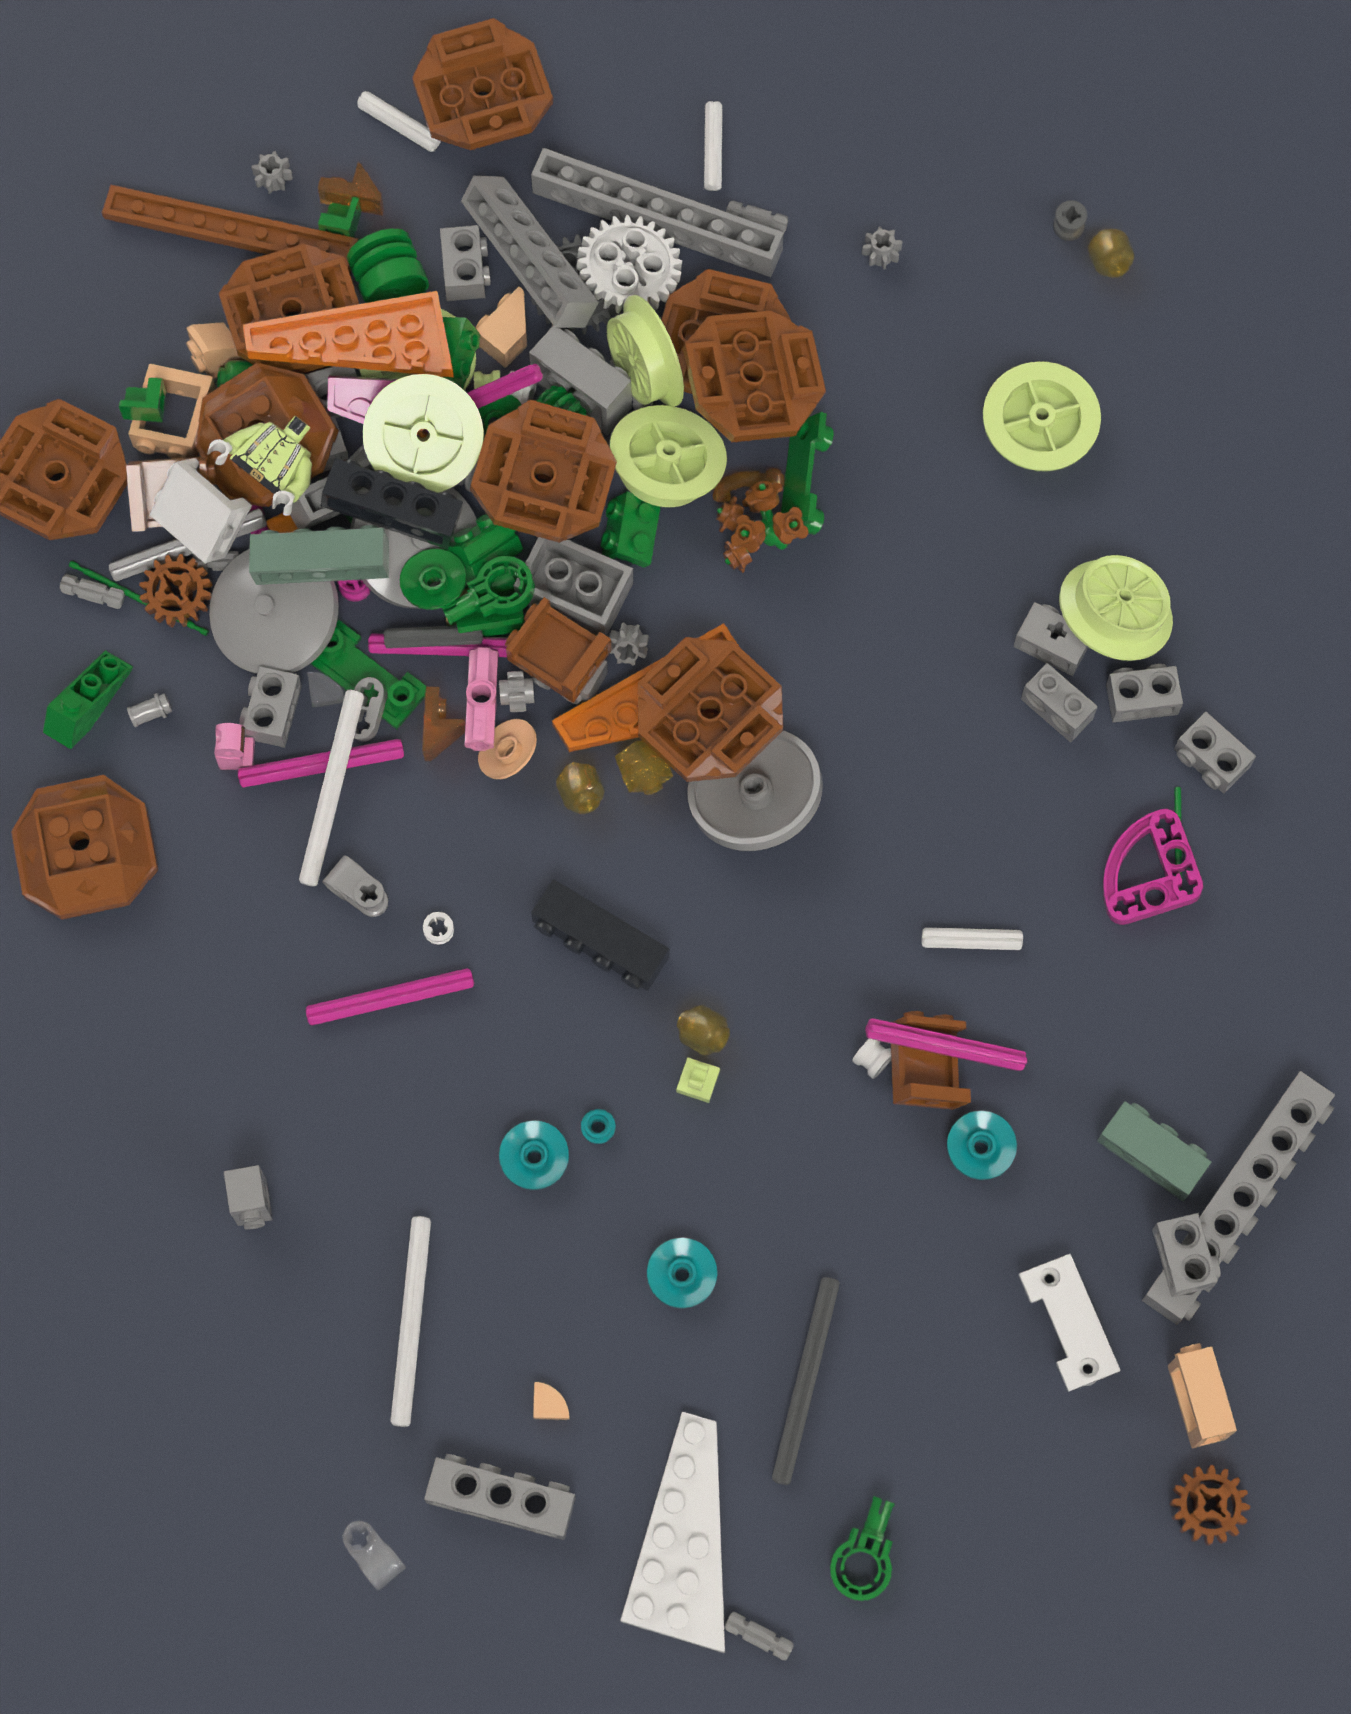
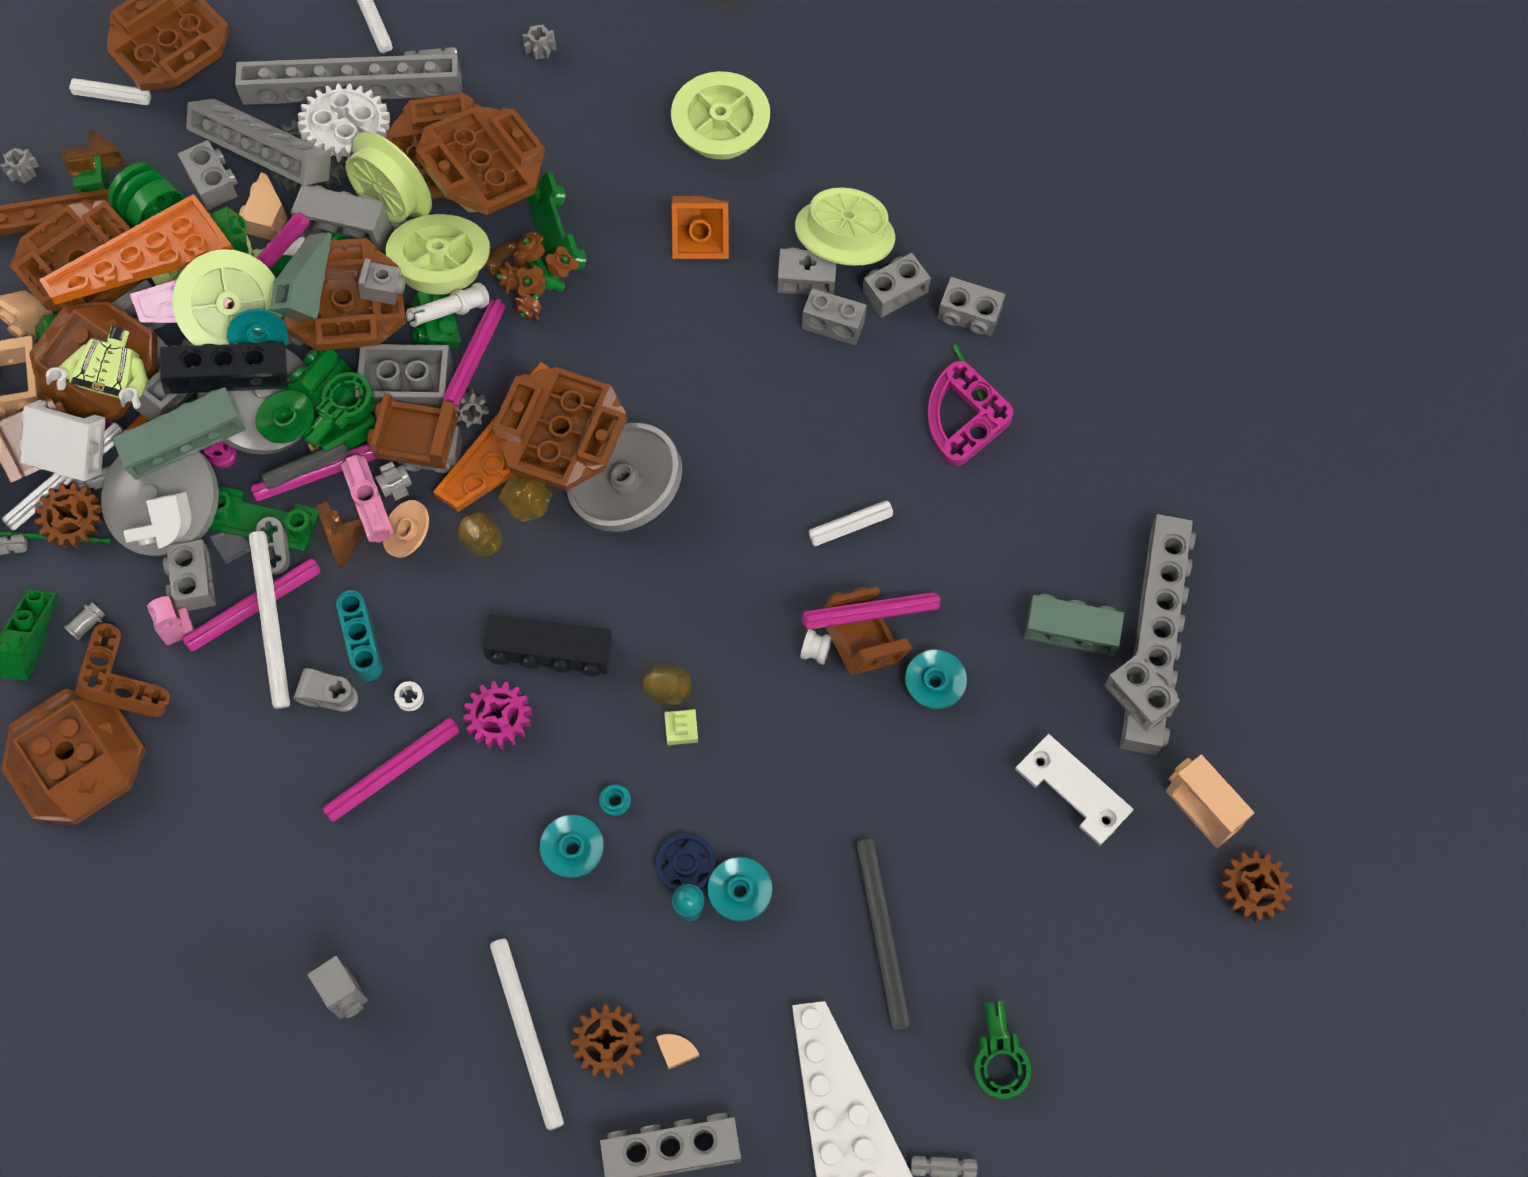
camera: 25 degrees left, 5 degrees down
(146, 787) = (107, 683): none -> dark orange beam
(273, 641) = (169, 519): none -> white brick
(410, 828) = (354, 623): none -> teal beam
(441, 474) = (243, 324): none -> teal dish
(490, 1350) = (591, 1041): none -> dark orange gear
(507, 443) = (300, 283): none -> sand green slope
(531, 987) = (485, 721): none -> dark pink gear
(590, 487) = (380, 282): none -> light grey brick
(623, 1263) = (688, 902): none -> teal piece
(640, 1222) = (685, 862): none -> dark blue wheel
(658, 585) = (474, 352): none -> dark pink axle
(664, 520) = (458, 302): none -> white pin
(959, 539) = (700, 228): none -> orange slope

